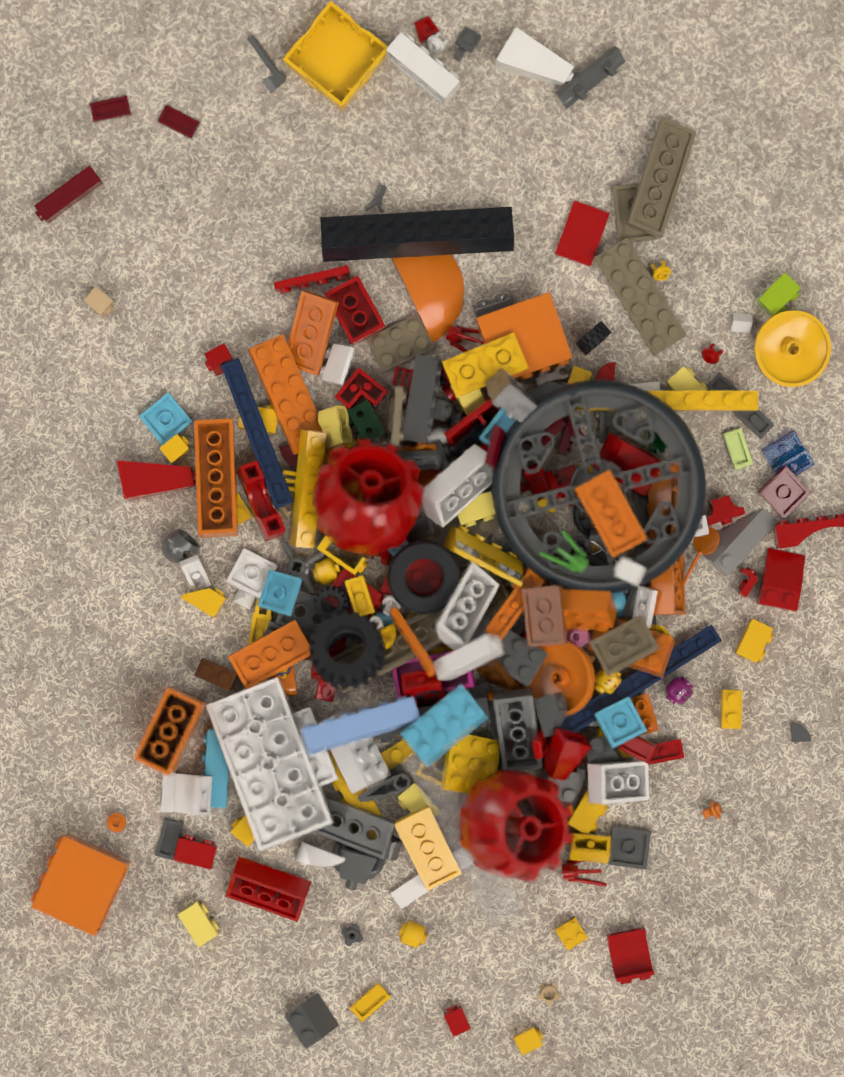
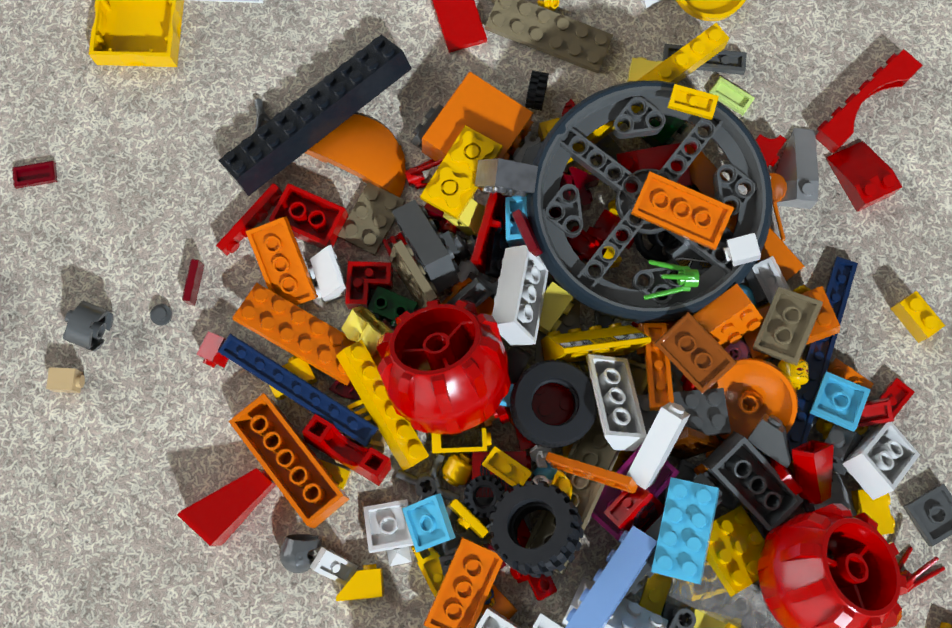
camera: 30 degrees left, 10 degrees down
(142, 274) = (87, 325): none -> dark grey brick
(165, 418) = (203, 441): medium azure plate -> none
(175, 448) = (231, 461): yellow brick -> none
(198, 302) = (161, 314): none -> dark grey plate
(232, 301) = (193, 282): none -> dark red tile
(277, 77) = (99, 77): dark grey piece -> none
(307, 609) = (467, 519): none -> yellow plate
(590, 848) = (911, 540): yellow brick -> none
(676, 444) = (693, 101): none -> yellow plate
(679, 690) = (859, 335): magenta head -> none
(710, 355) = (646, 36): red plate -> none
(746, 585) = (838, 197): red bracket -> none
(754, 641) = (884, 242): yellow brick -> none
(783, 492) = (800, 100): tile -> none
(789, 452) = (778, 72): clear blue slope -> none

